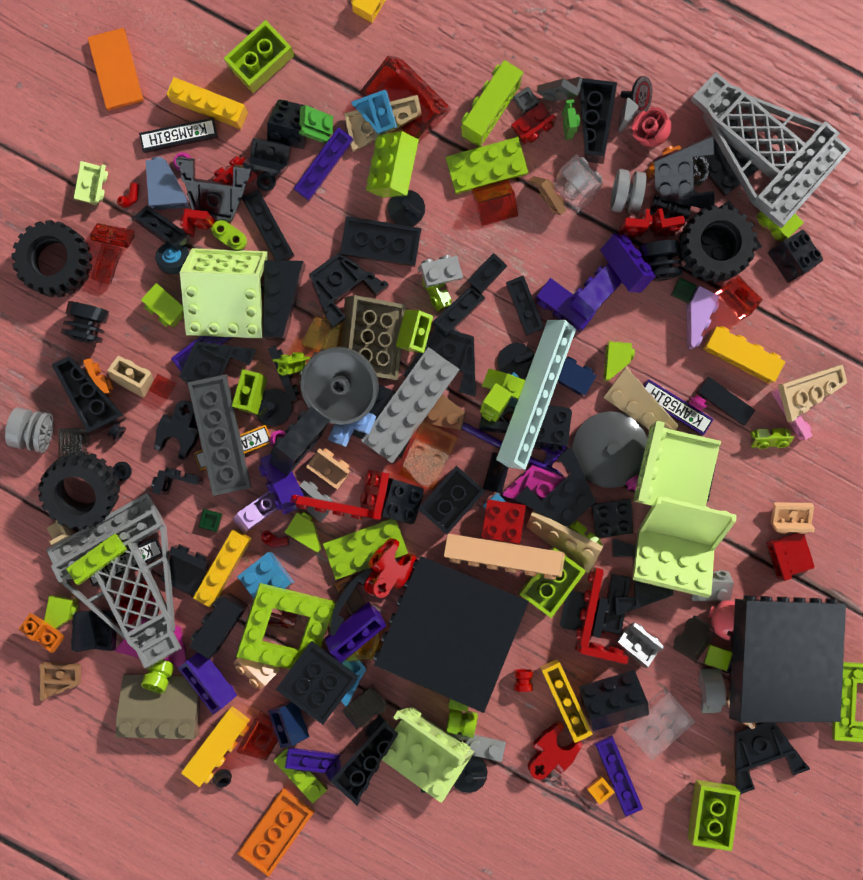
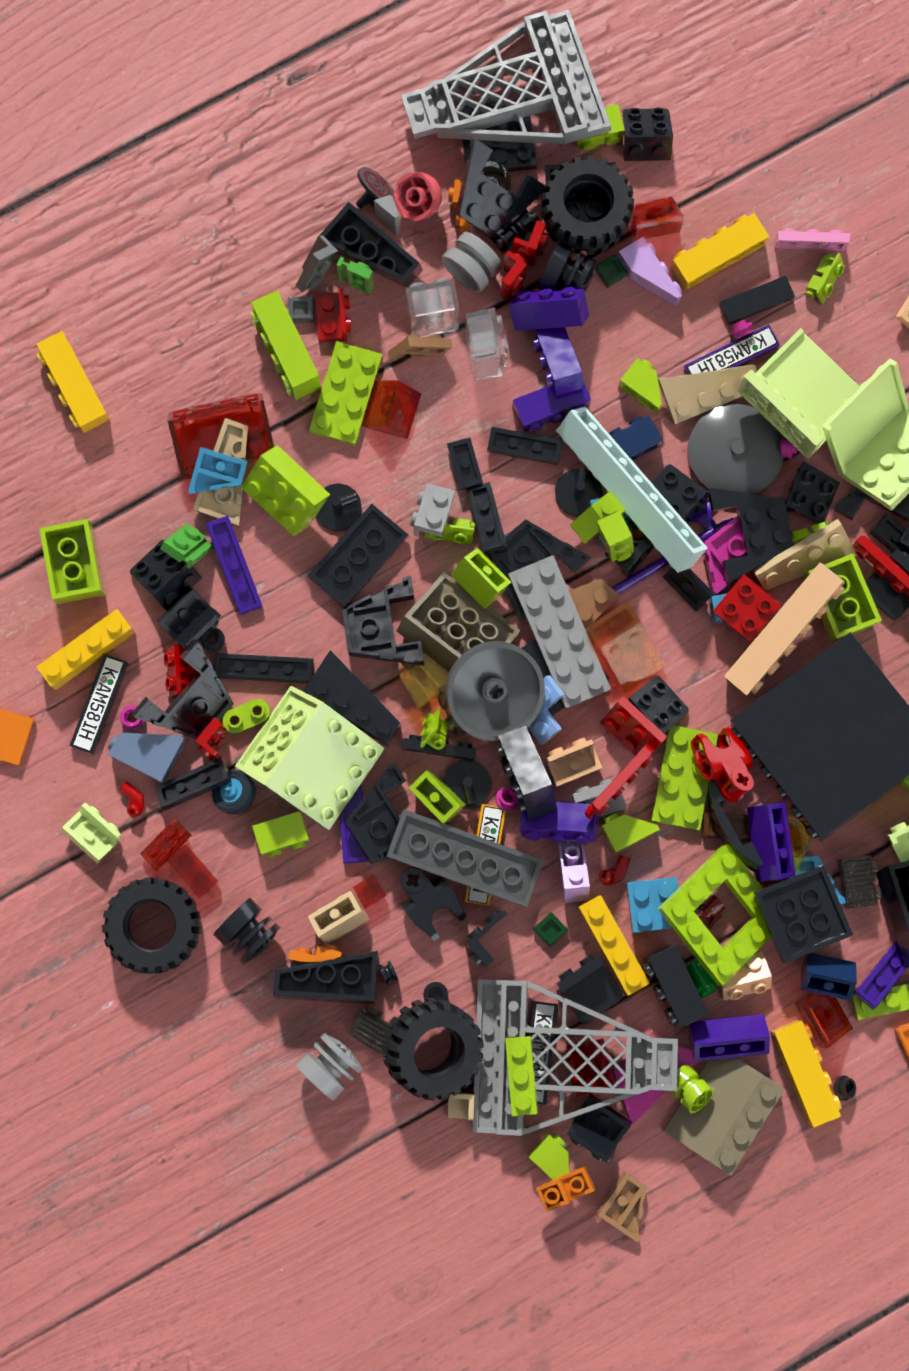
camera: 60 degrees left, 5 degrees down
(233, 641) = (702, 980): none -> green cone
(451, 500) = (689, 650): black brick -> none
(575, 234) = (485, 345): none -> clear brick
(809, 390) = (799, 207): tan wing -> none

